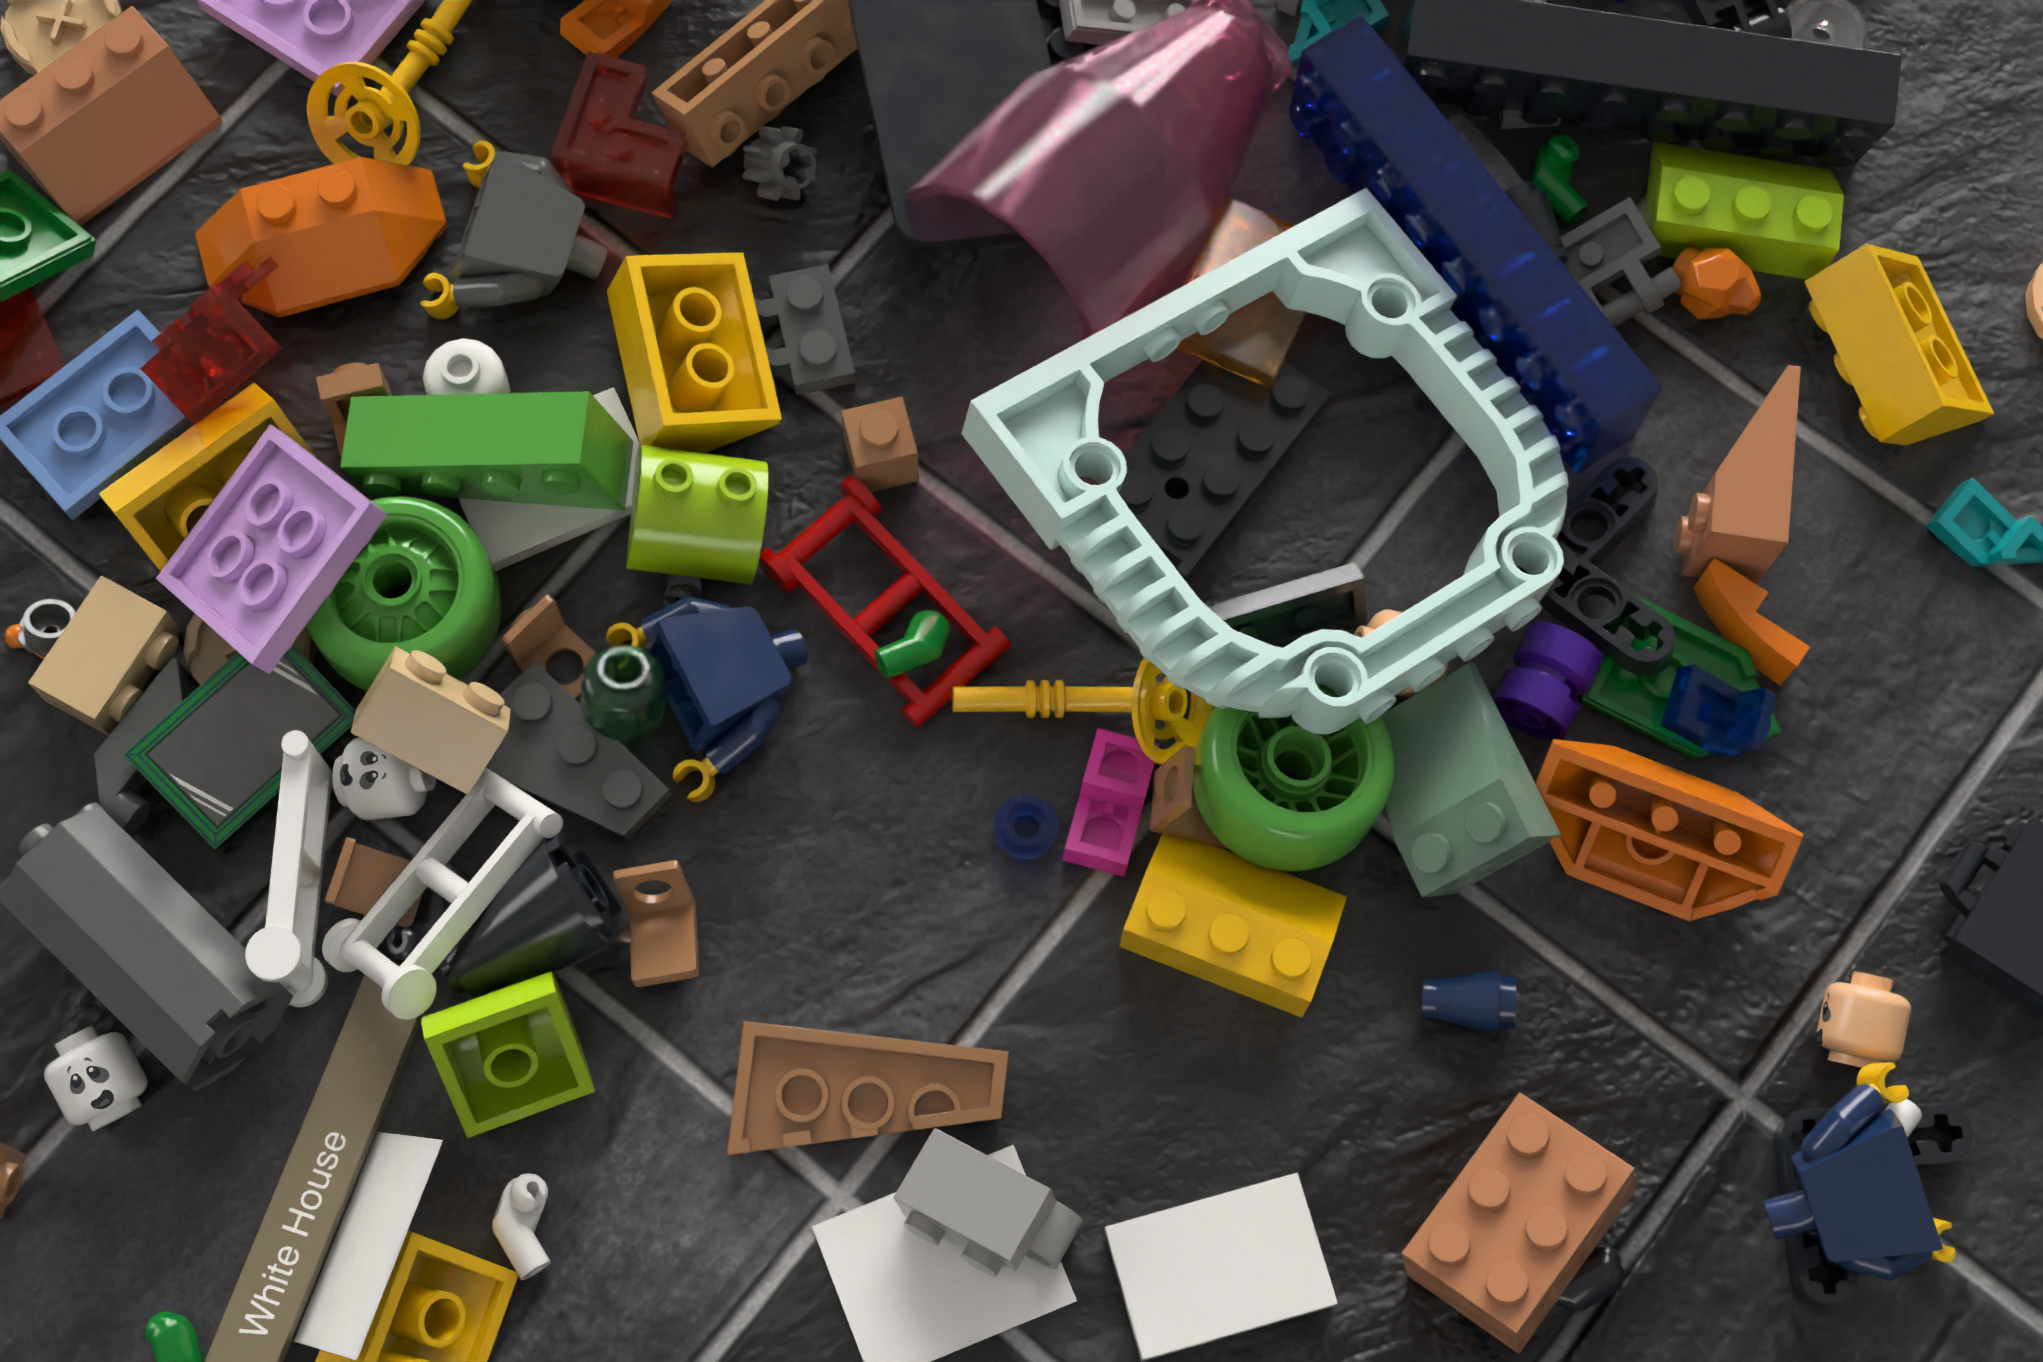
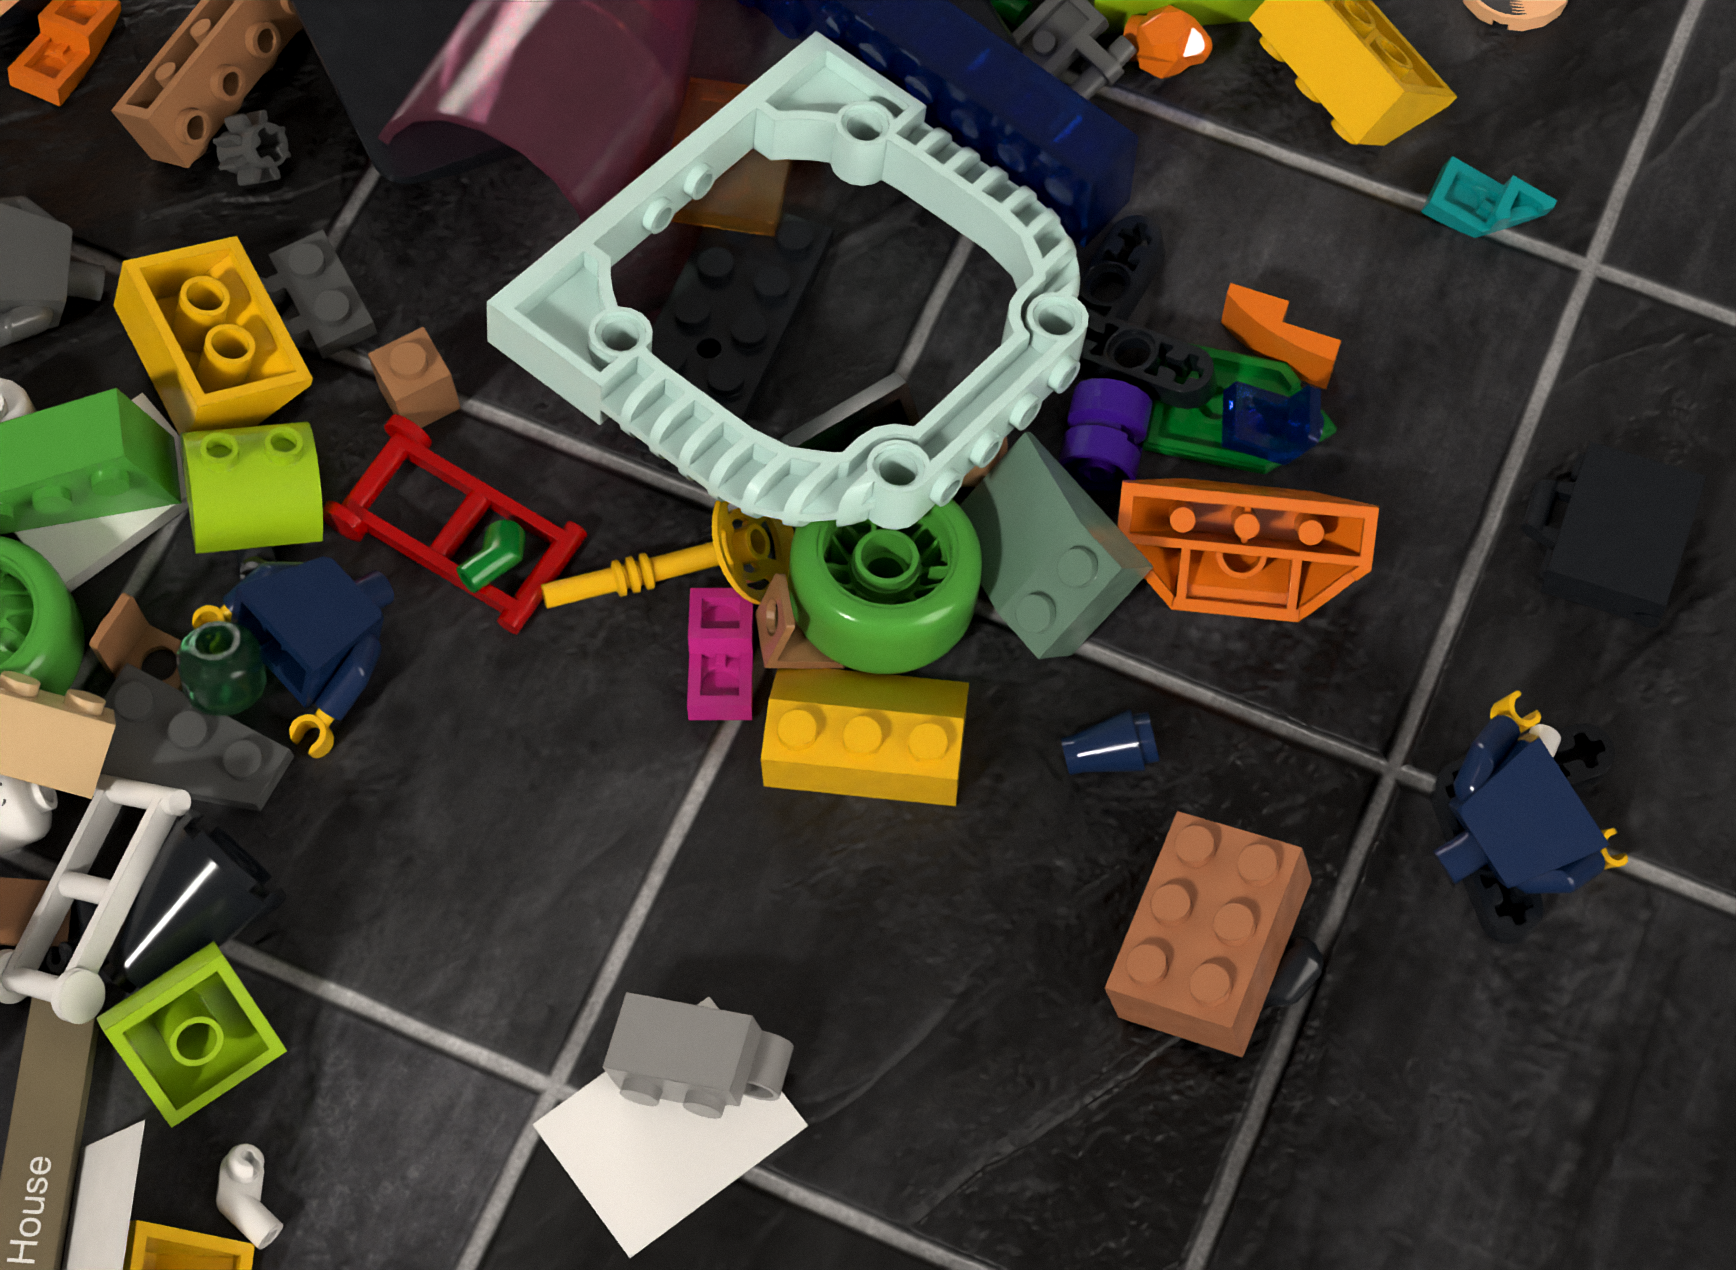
camera: 10 degrees left, 5 degrees down
(610, 153) = (90, 177): clear red panel -> none
(660, 925) = (314, 879): medium nougat bracket -> none
(839, 1086) = (530, 980): medium nougat wing -> none
(1029, 808) = (641, 680): clear blue plate -> none
(1219, 1266) = (936, 1055): white tile -> none
(1748, 501) = (1245, 219): nougat slope -> none
(1863, 1021) = (1483, 666): light nougat head -> none

